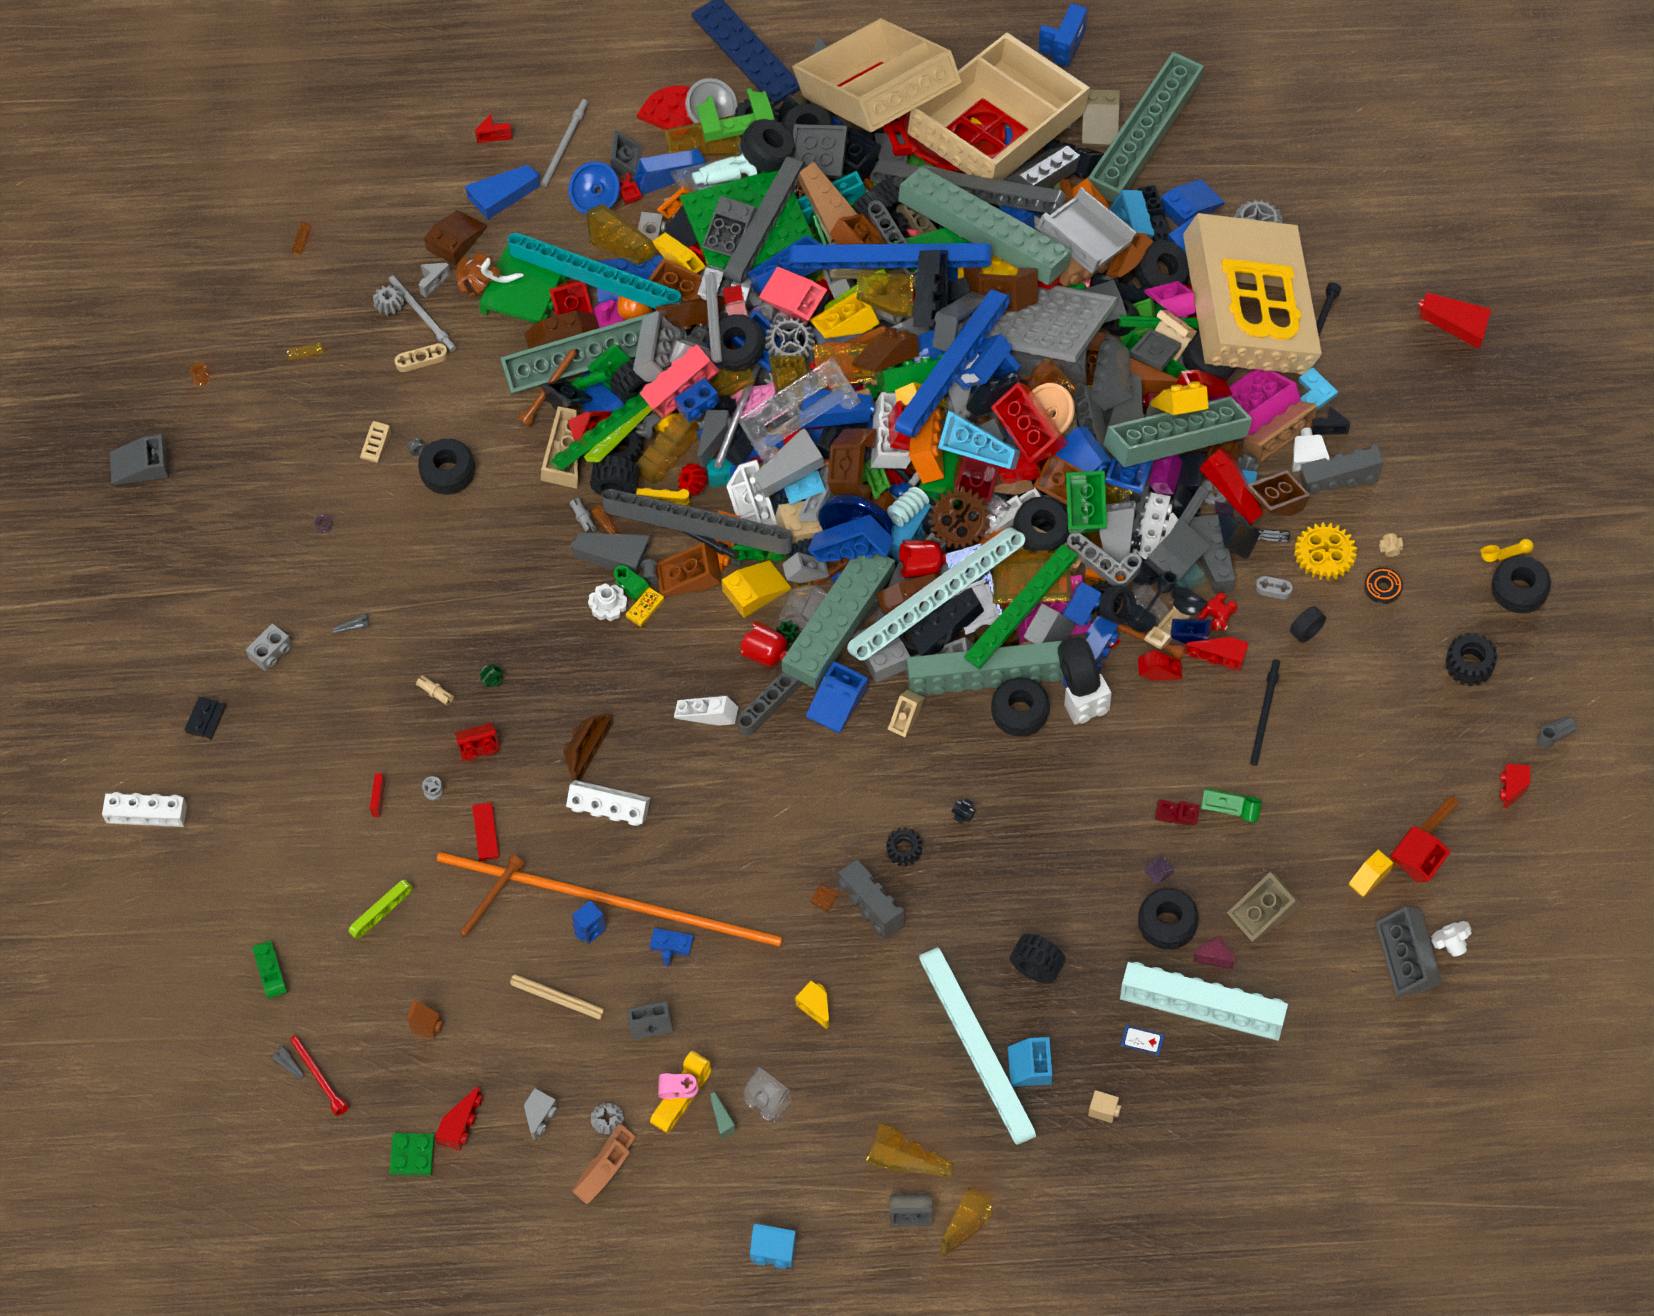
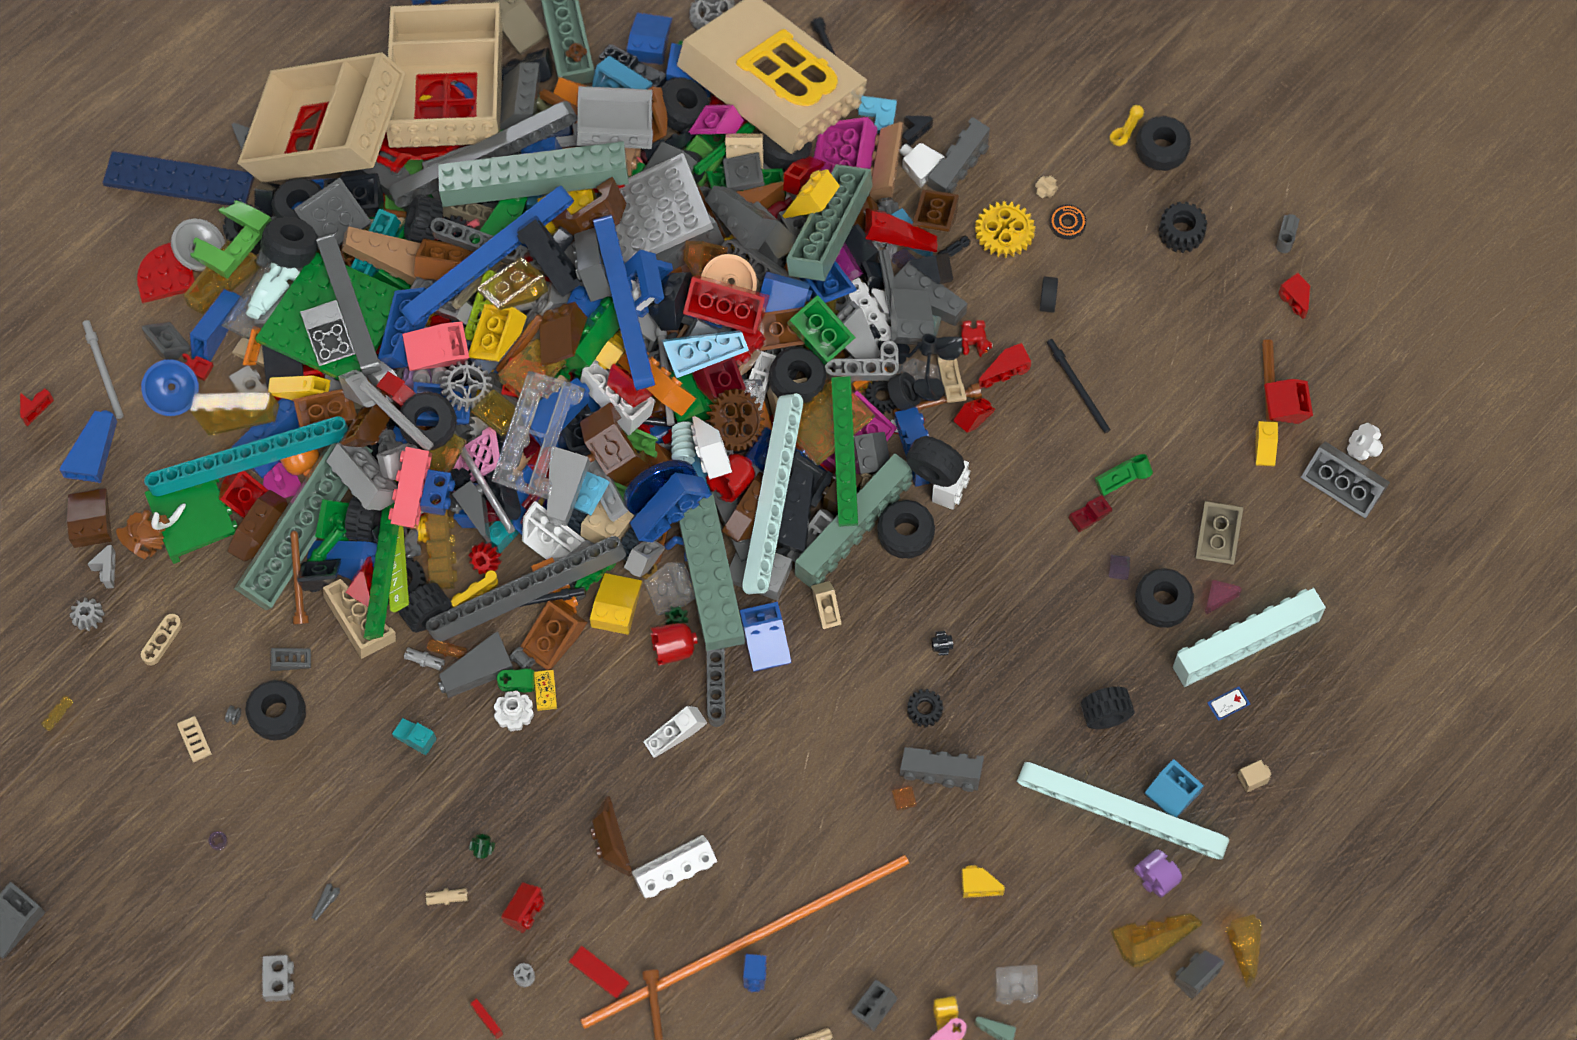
camera: 45 degrees left, 5 degrees up
(442, 336) = (161, 607): light grey bar -> none
(486, 428) = (290, 665): none -> dark grey slope
(523, 563) = (415, 736): none -> teal arch
(671, 943) = (827, 932): blue plate -> none
(914, 522) = (710, 449): none -> white slope
(953, 1110) = (1158, 873): none -> medium lavender brick
(1082, 603) = (881, 407): blue brick -> none
(1115, 166) = (576, 47): none -> reddish brown plate
(1190, 630) = (972, 367): clear blue slope -> none
(1274, 587) = (992, 284): light grey beam -> none

